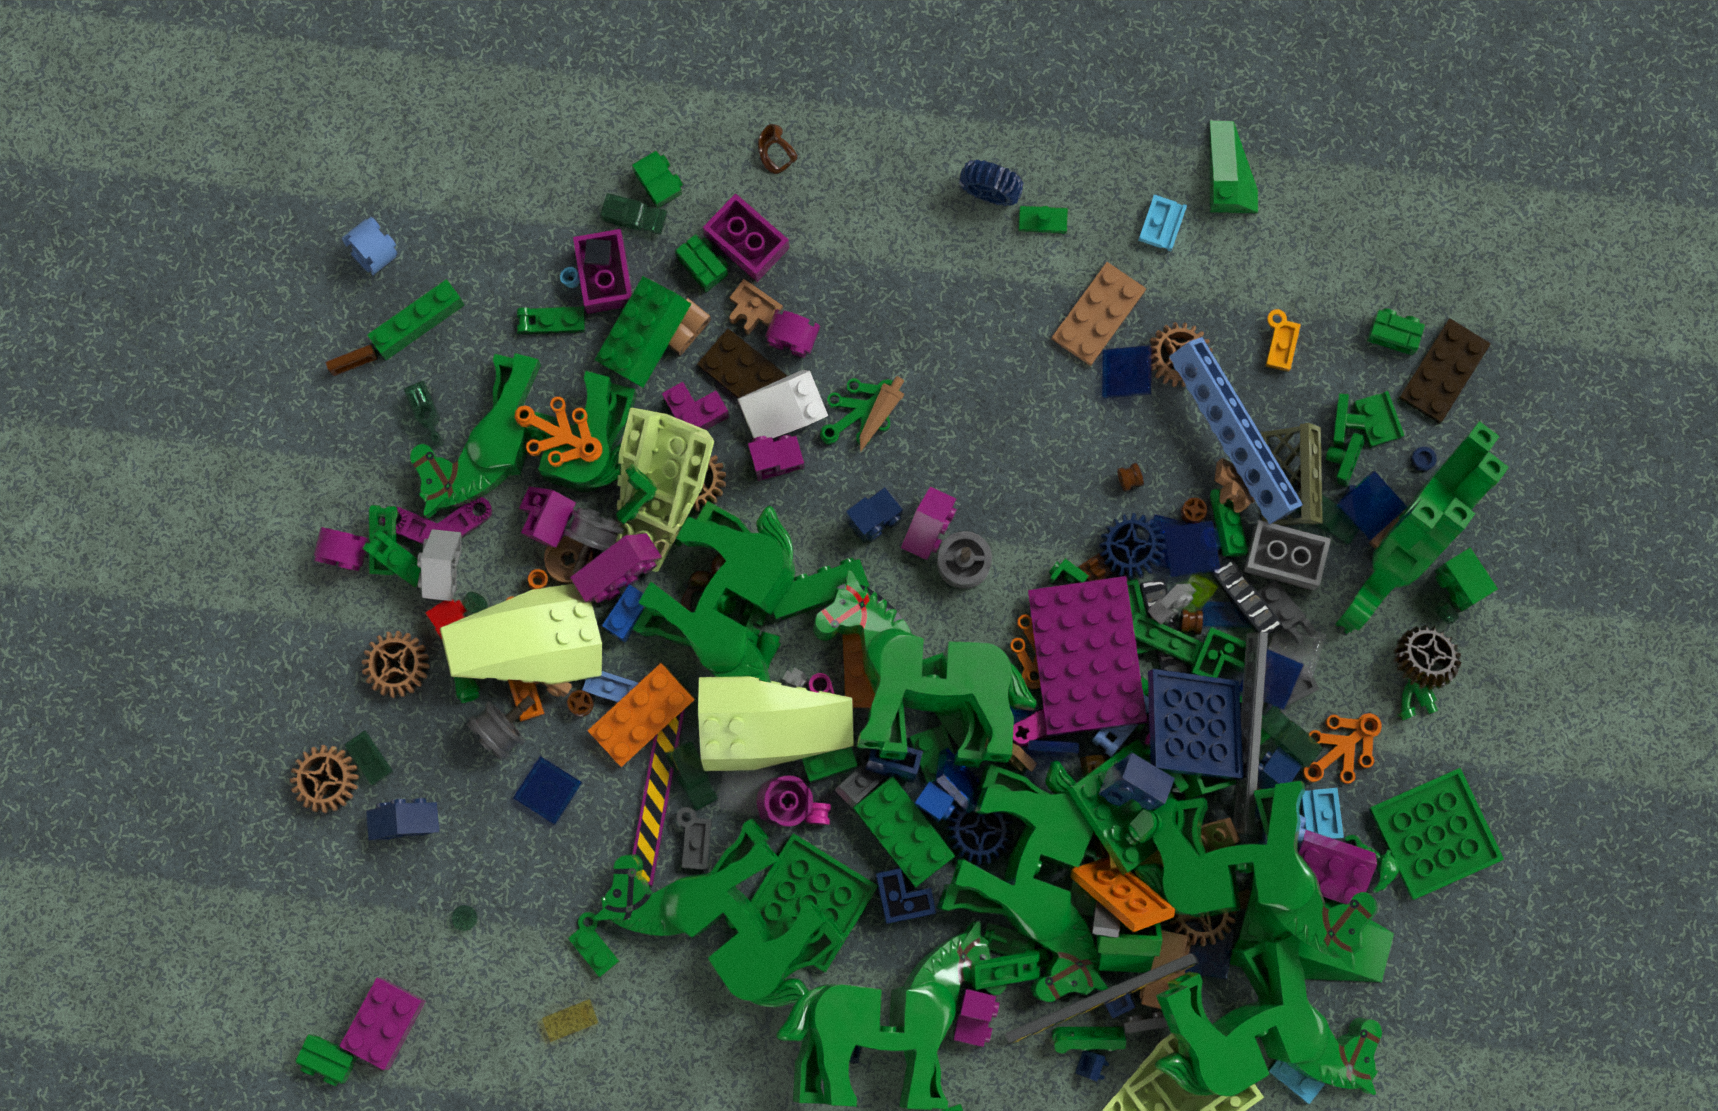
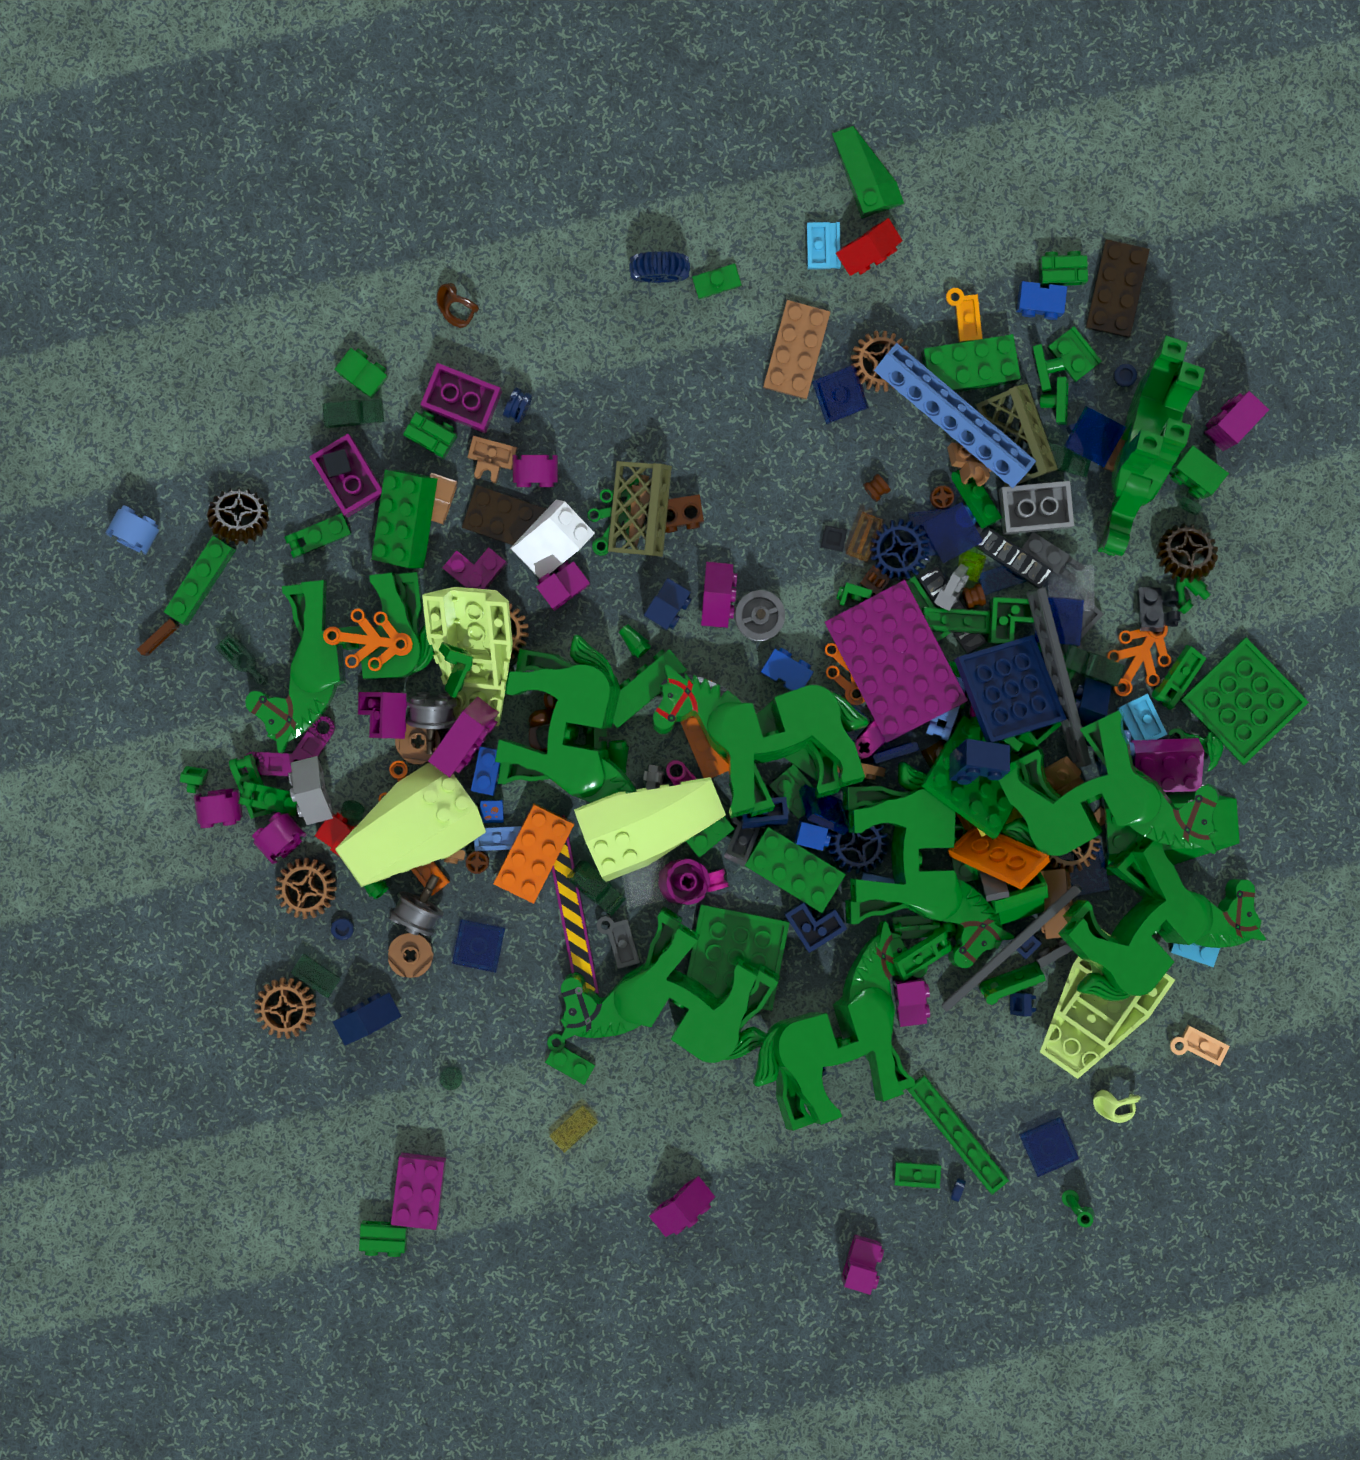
camera: 20 degrees left, 10 degrees up
(328, 511) = (193, 777): none -> green tile
(389, 601) = (278, 837): none -> magenta brick
(416, 720) = (342, 928): none -> dark blue tile
(461, 767) = (397, 954): none -> medium nougat plate
(479, 270) = (252, 517): none -> dark brown gear
(570, 272) = (321, 486): medium azure hinge -> none
(616, 657) = (492, 811): none -> blue slope
(799, 265) = (517, 405): none -> dark blue wheel
(828, 542) = (636, 643): none -> green cone
(897, 413) = (656, 513): none -> olive fence
(922, 422) = (678, 506): none -> reddish brown brick
(970, 623) = (781, 666): none -> blue brick
(1068, 512) = (833, 538): none -> black tile
(1113, 506) = (871, 518): none -> clear orange tile
(1143, 827) = (997, 795): green arm -> none
(1209, 238) = (870, 248): none -> red brick
(1275, 389) = (974, 363): none -> green brick
(1363, 354) = (1041, 301): none -> blue brick
(1370, 703) = (1151, 609): none -> black plate
(1376, 783) = (1179, 677): none -> green plate
(1522, 539) = (1235, 420): none -> magenta brick

